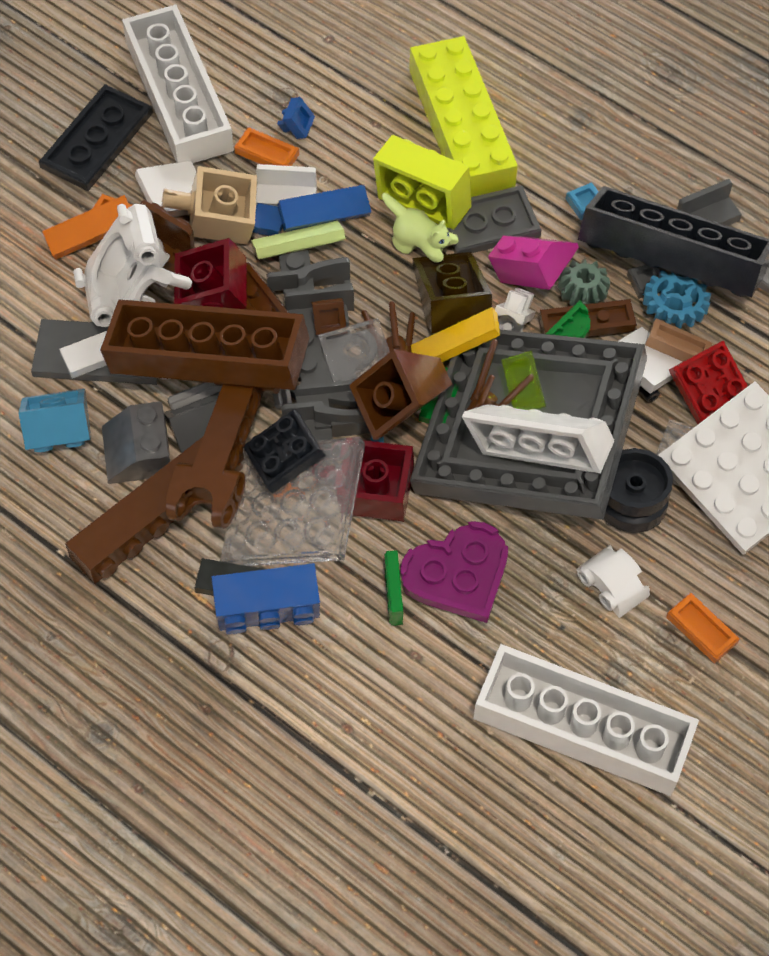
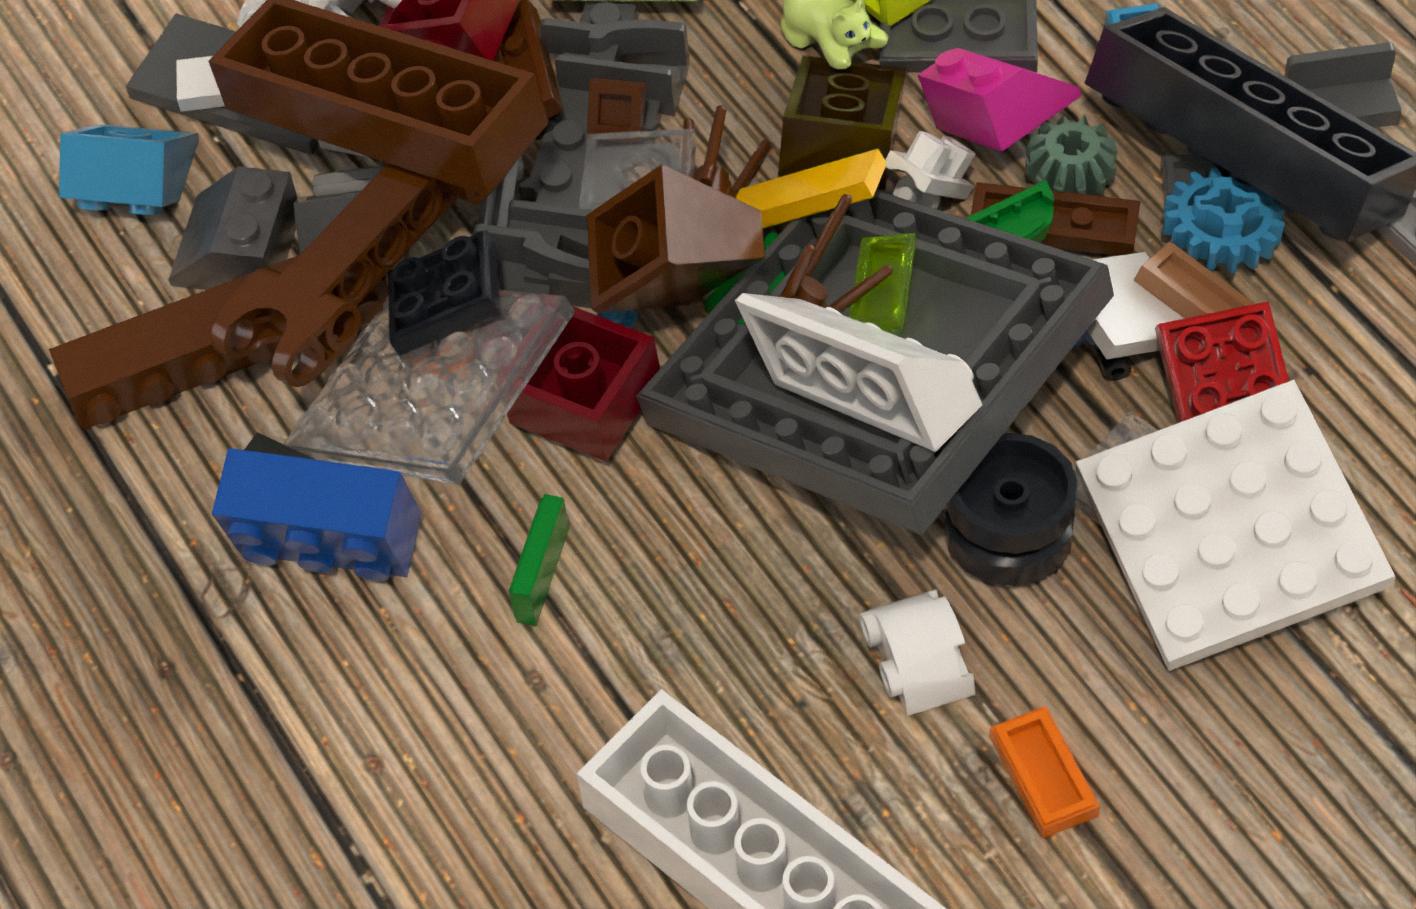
camera: 25 degrees right, 5 degrees down
(458, 572) = (660, 565): magenta plate -> none

